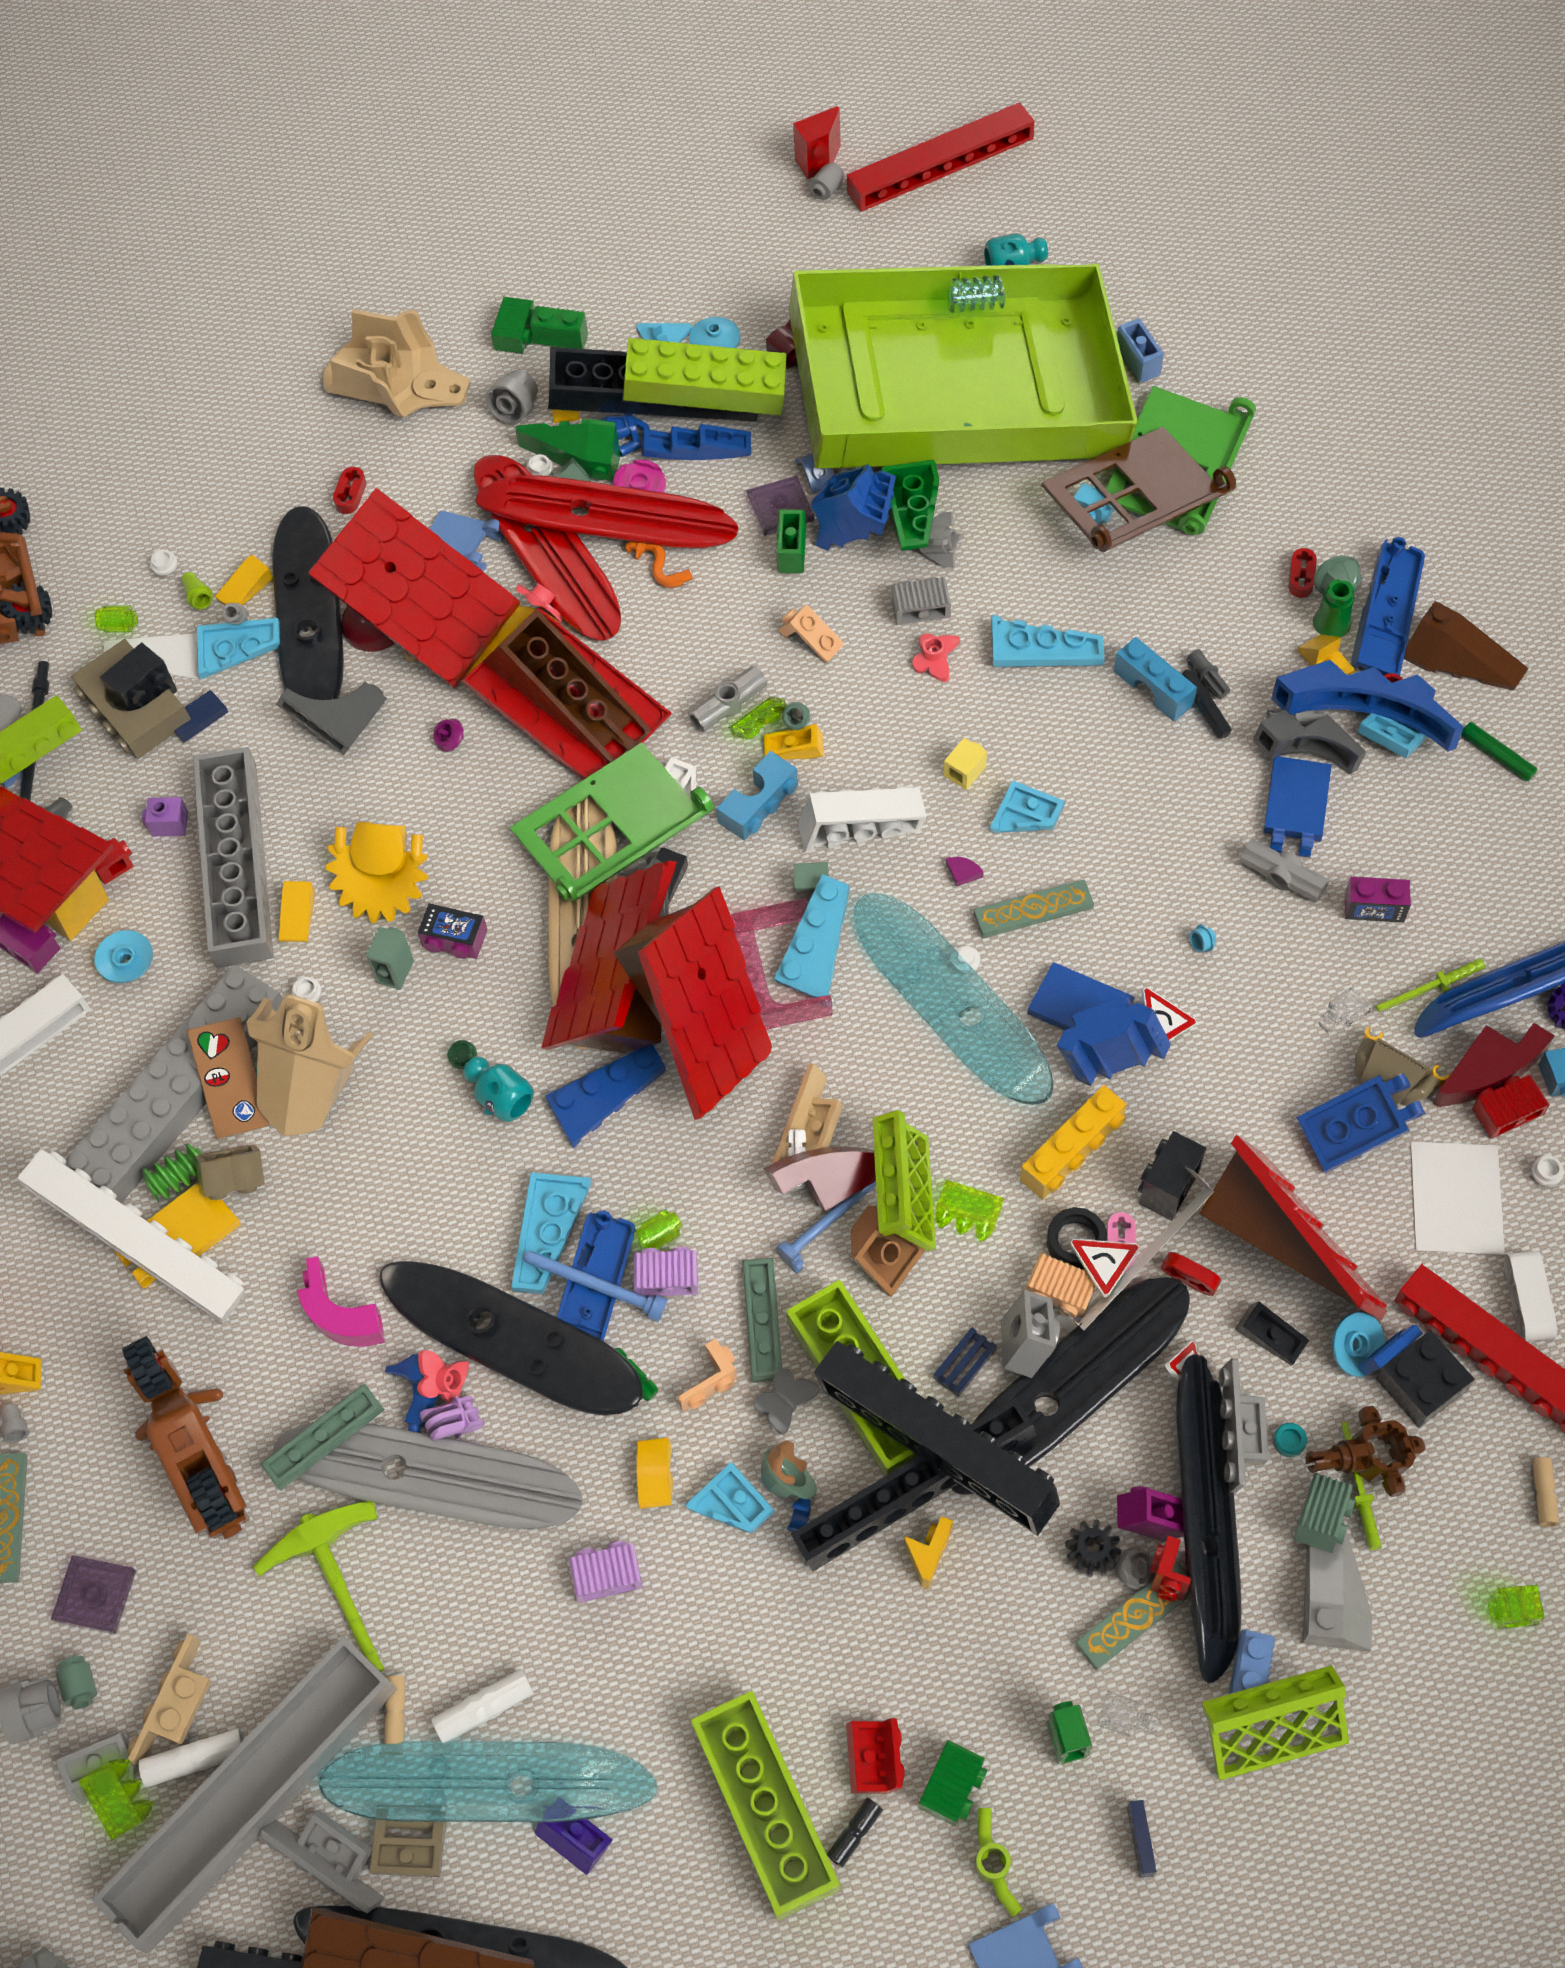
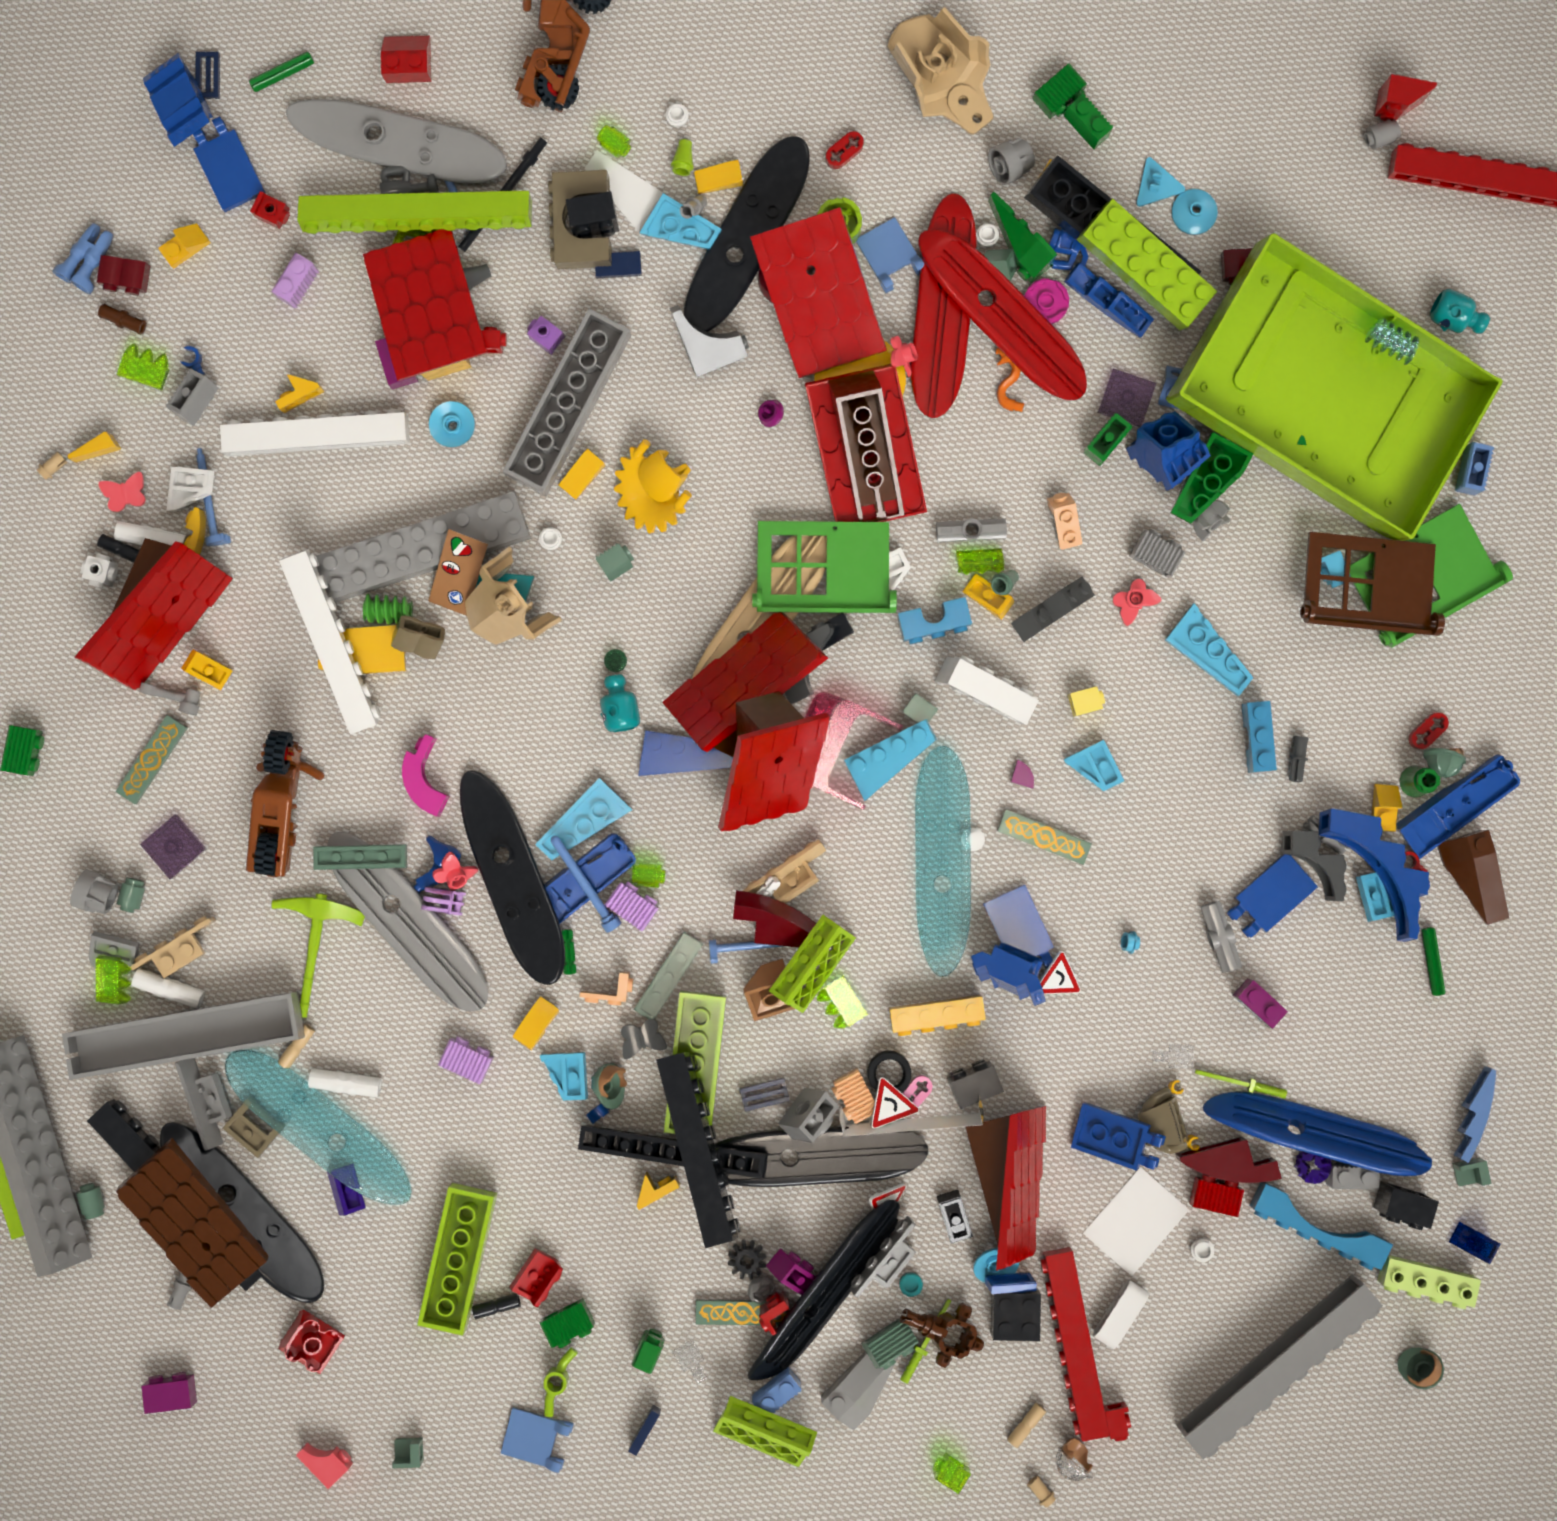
camera: 35 degrees right, 25 degrees up
(452, 931) = (668, 568): brick -> none
(865, 702) = (1053, 609): none -> dark grey arch
(1191, 1273) = (937, 1148): red beam -> none
(1208, 707) = (1277, 779): black axle -> none

